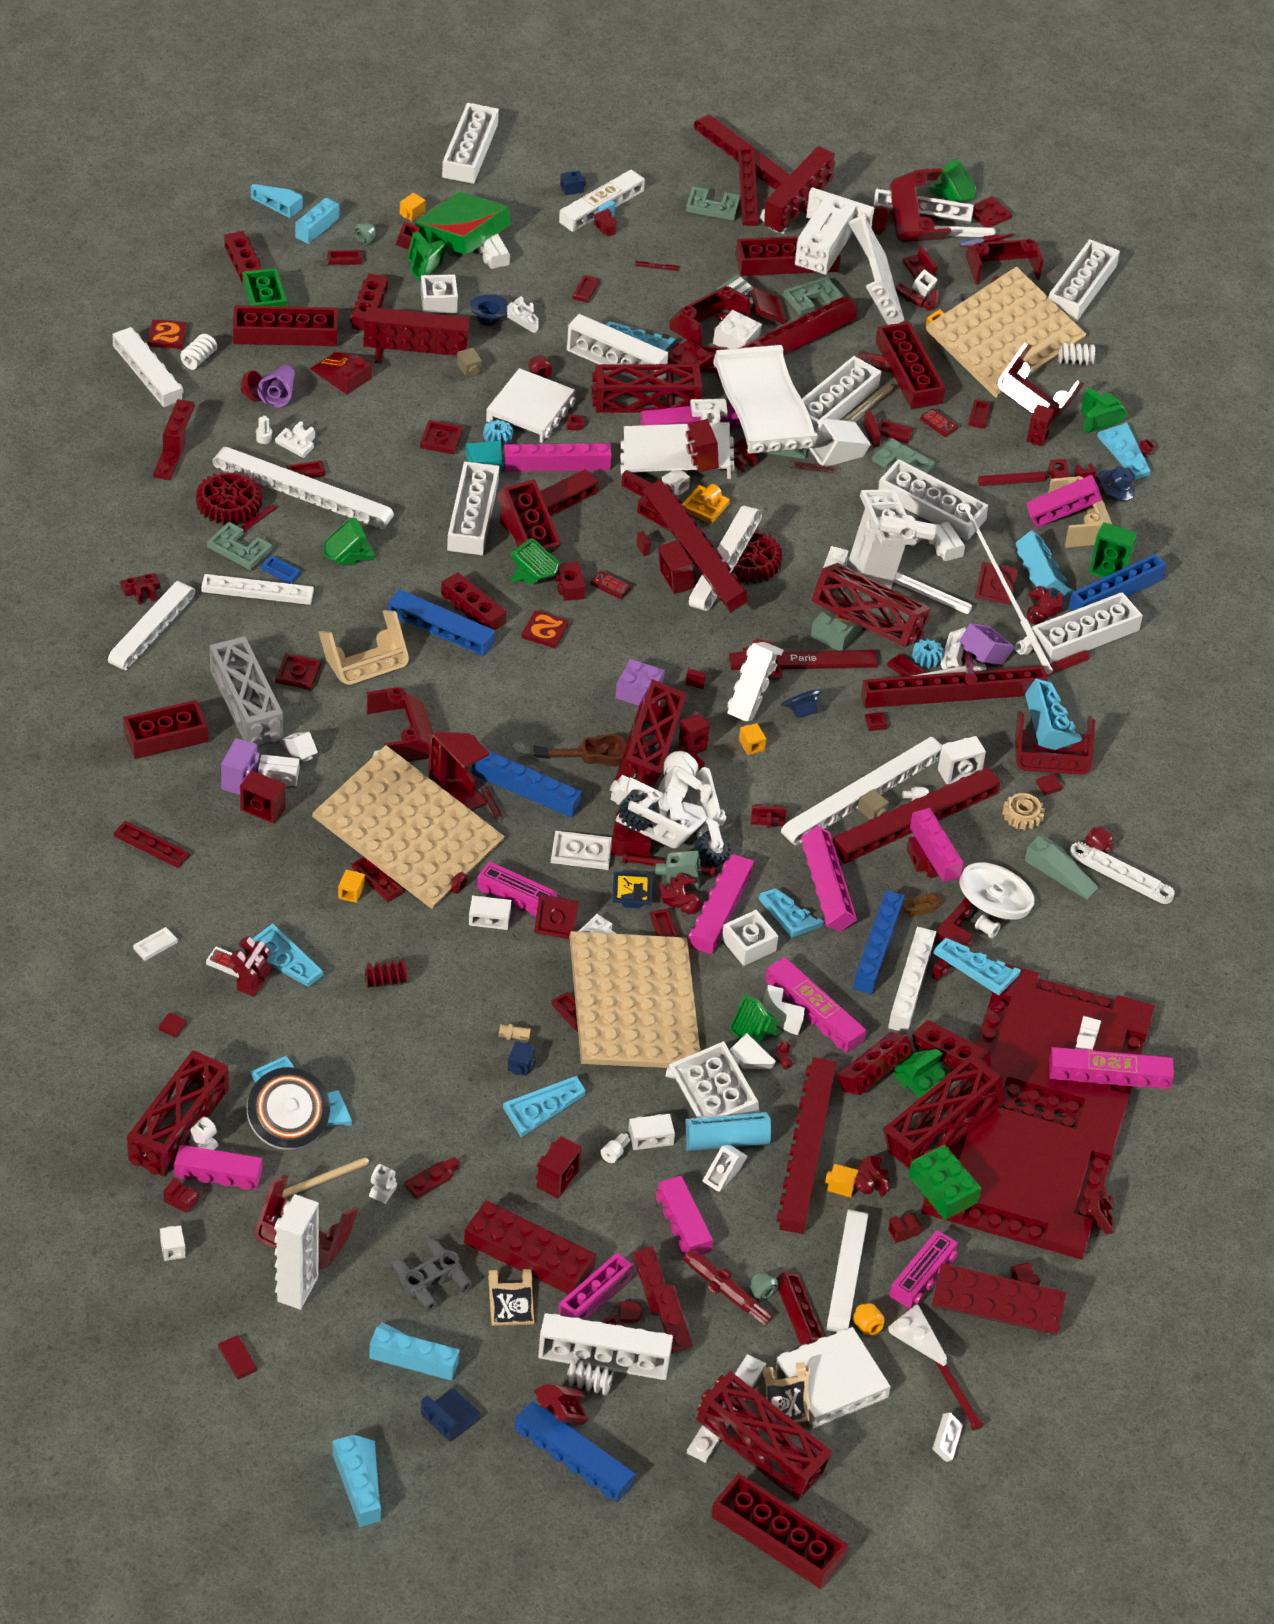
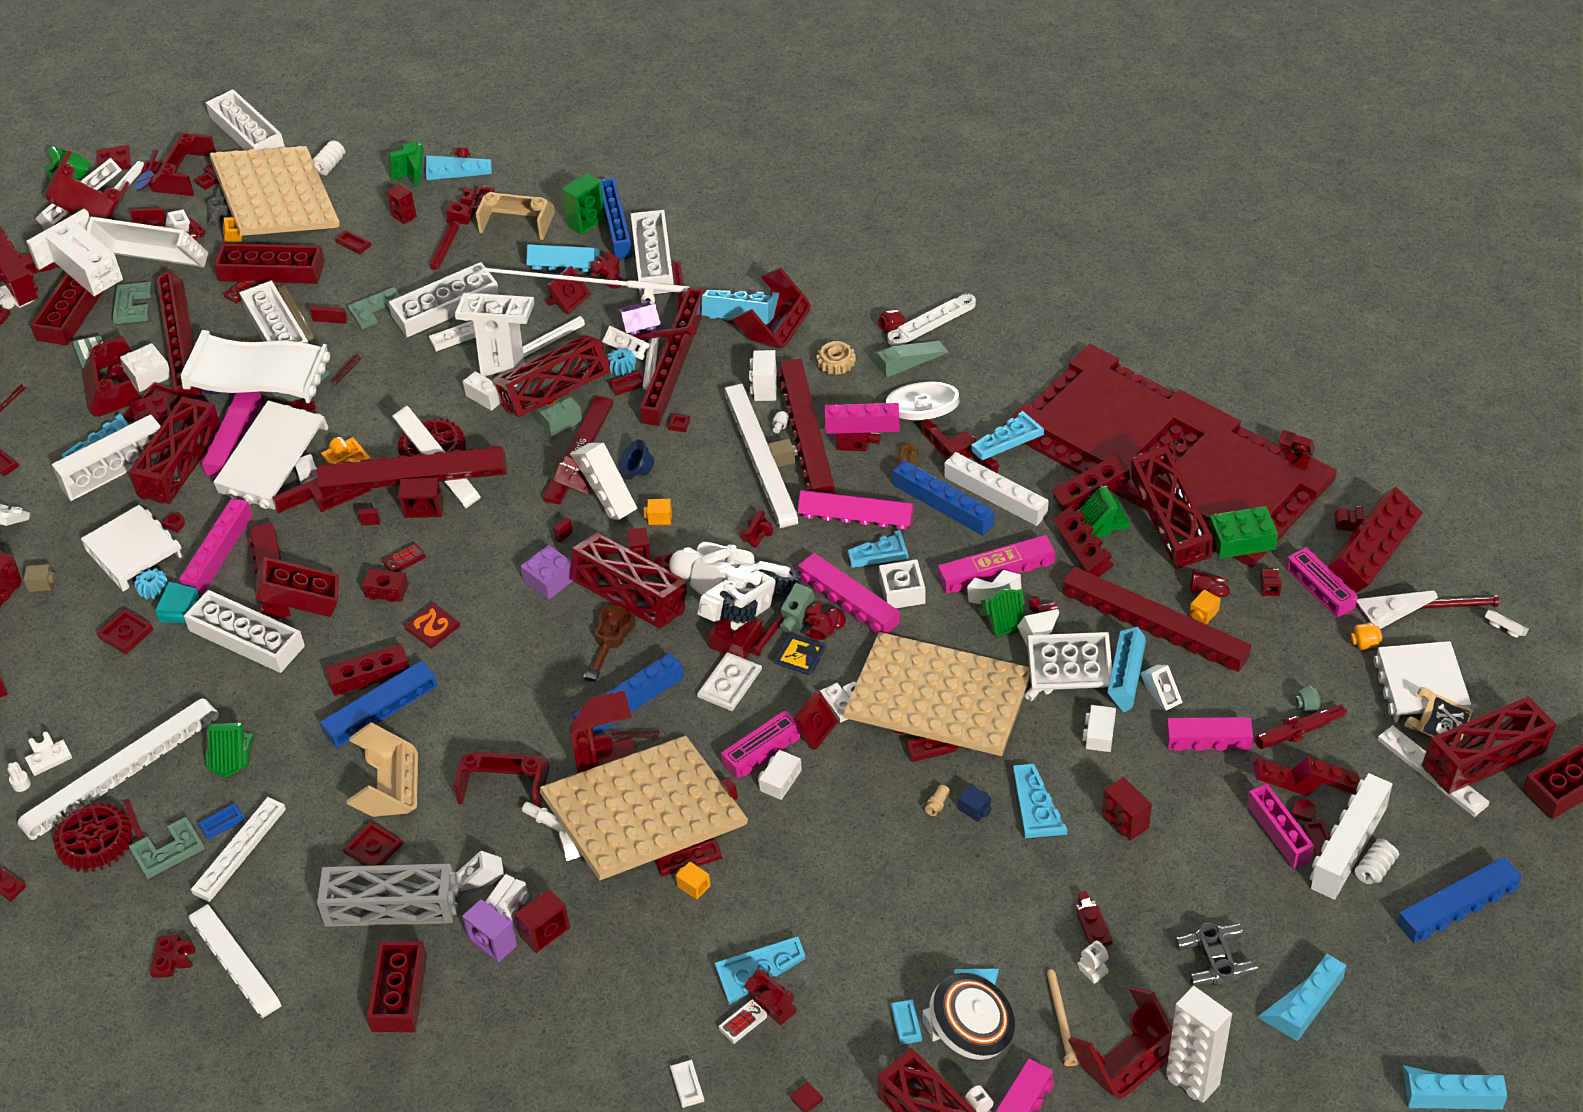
camera: 60 degrees left, 0 degrees up
(151, 844) = (545, 1049): dark red tile -> none
(308, 469) = (94, 756): dark red tile -> none
(386, 972) = (822, 883): dark red piece -> none
(449, 1414) = (1390, 989): dark blue bracket -> none
(511, 1301) = (1262, 899): flag -> none
(529, 1247) = (1210, 864): dark red brick -> none
(532, 562) = (355, 603): green piece -> none
(540, 366) = (85, 524): dark red head -> none
(563, 1402) = (1408, 888): dark red brick -> none
(614, 1148) = (1110, 763): white piece -> none
(663, 923) = (852, 647): dark red tile -> none
(702, 445) = (295, 422): dark red brick -> none
(709, 409) = (240, 410): white plate -> none
(768, 306) = (131, 335): dark red tile -> none
(799, 1308) = (1338, 684): dark red slope -> none
(839, 442) = (337, 336): white slope -> none
(847, 1271) = (1307, 635): white beam -> none
(895, 431) = (340, 299): dark red tile -> none
(907, 527) = (522, 295): white piece -> none
(938, 422) = (346, 270): tile -> none
(987, 926) = (954, 421): white bush -> none
(1015, 385) = (373, 198): windscreen -> none
(1049, 784) = (810, 334): dark red tile -> none
(1064, 501) = (504, 214): dark pink brick -> none
(1088, 1033) = (1121, 396): white leg -> none
(1111, 1068) = (1154, 388): dark pink brick -> none
(1117, 483) = (495, 180): dark blue hat -> none

